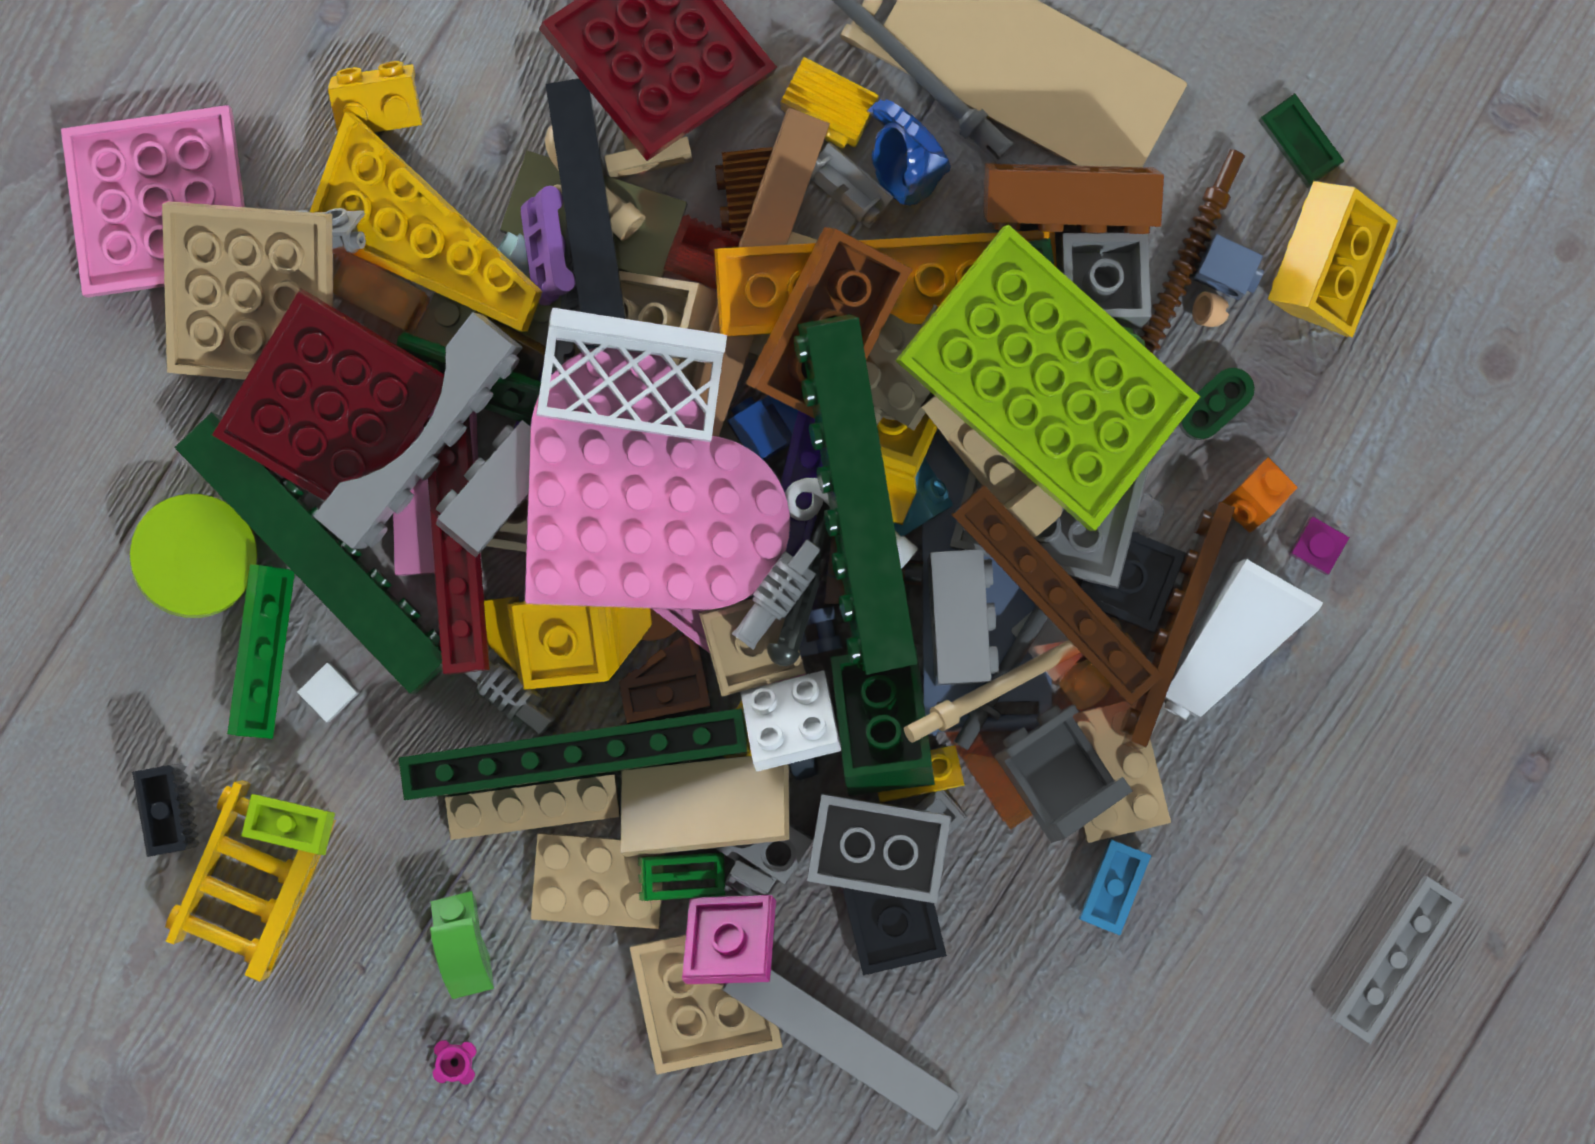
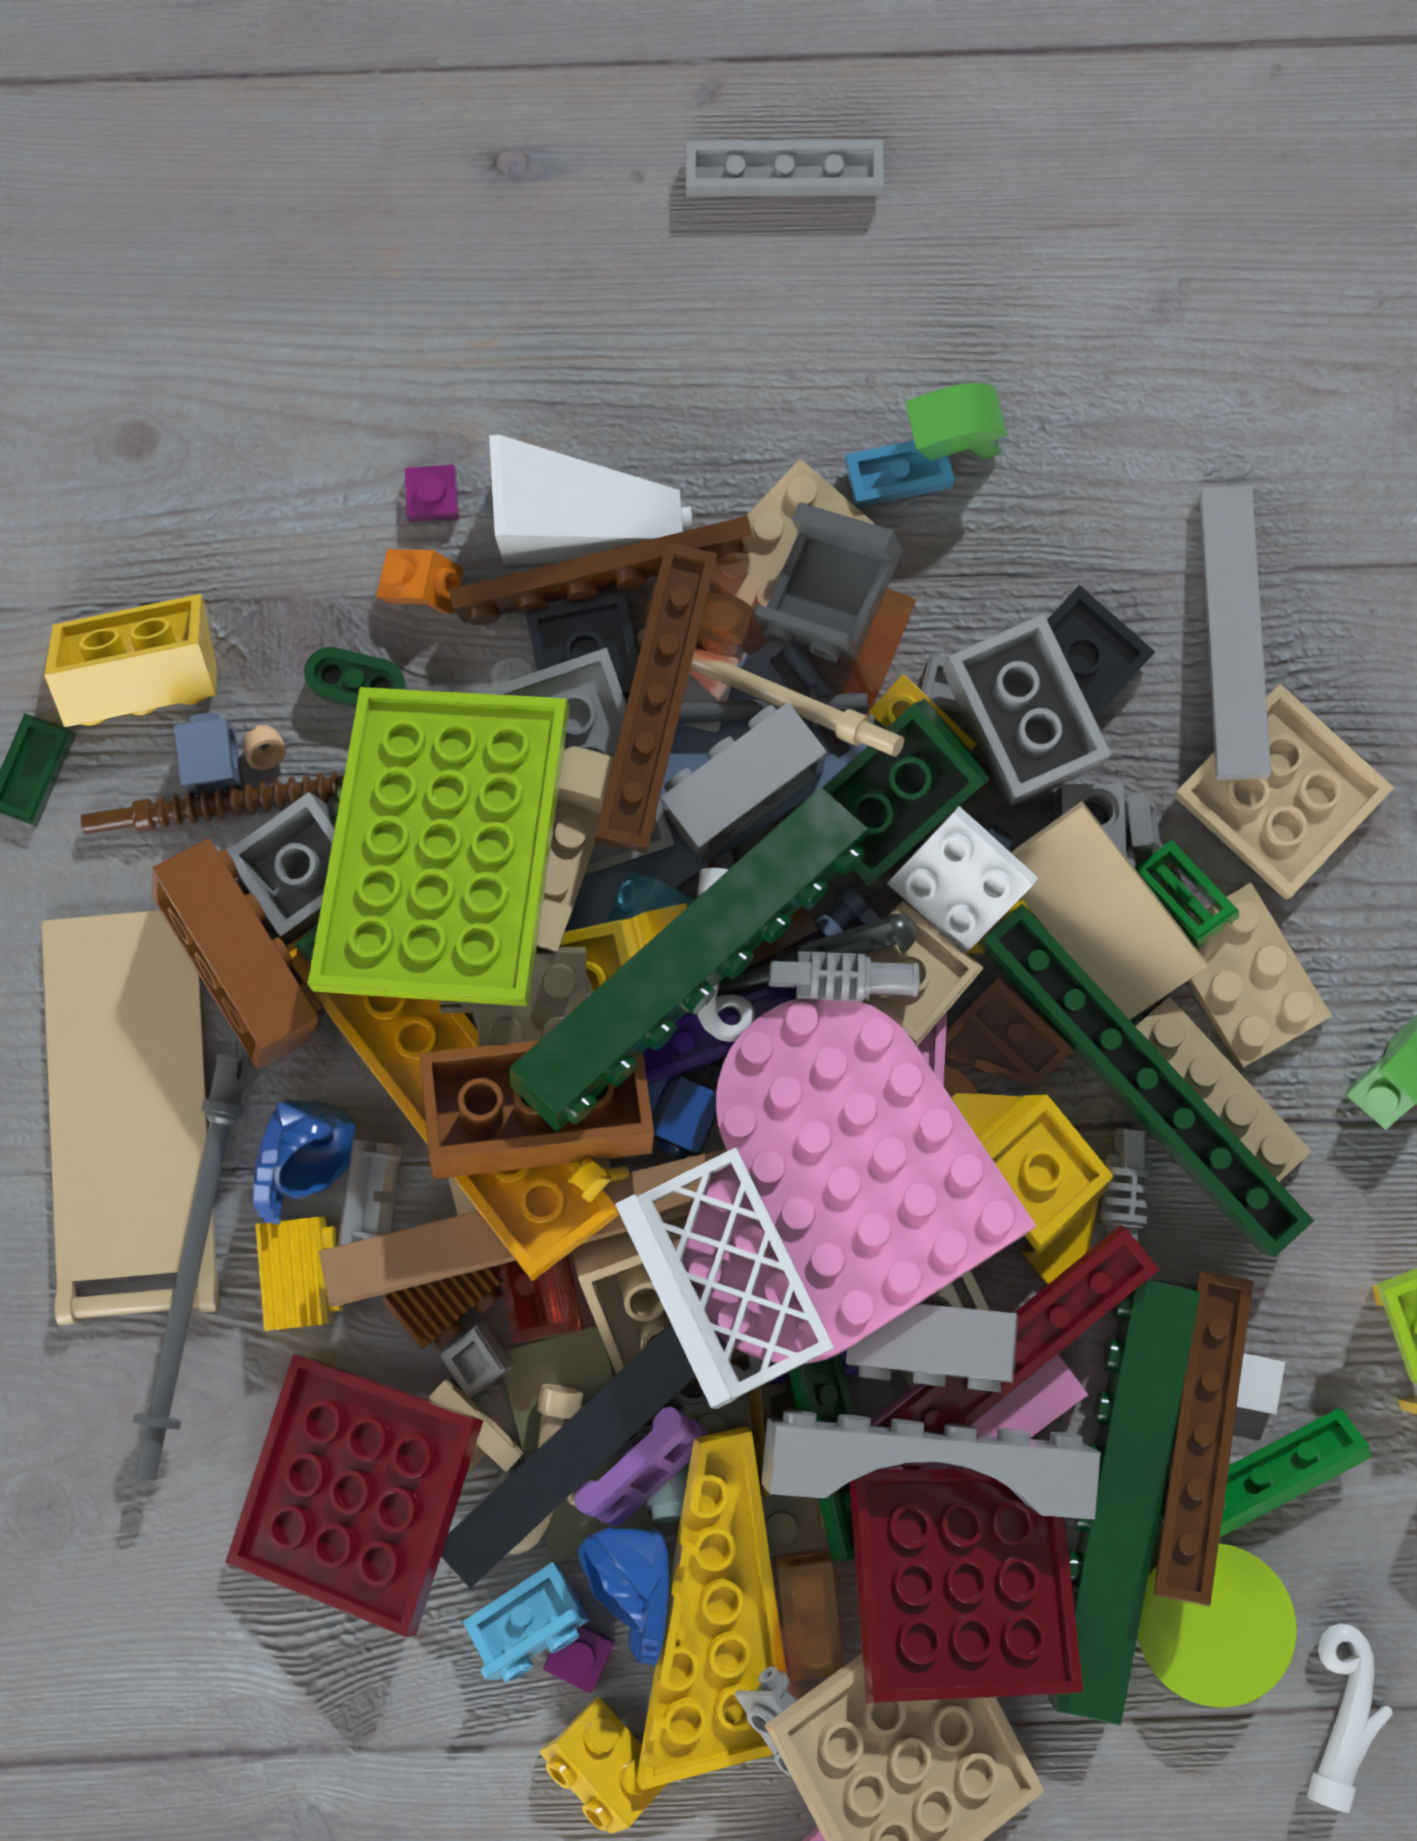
camera: 135 degrees left, 5 degrees down
(67, 601) = (1352, 1728): none -> white plant
(316, 629) = (1203, 1441): none -> reddish brown plate
(456, 129) = (582, 1659): none -> magenta plate
(478, 192) = (632, 1581): none -> blue hair
(500, 107) = (525, 1622): none -> medium azure bracket
(691, 185) = (476, 1360): none -> light grey tile
(729, 939) = (1217, 800): dark pink plate -> none
(754, 333) = (593, 1177): none -> yellow hand
(1119, 946) = (957, 421): none -> bright green brick

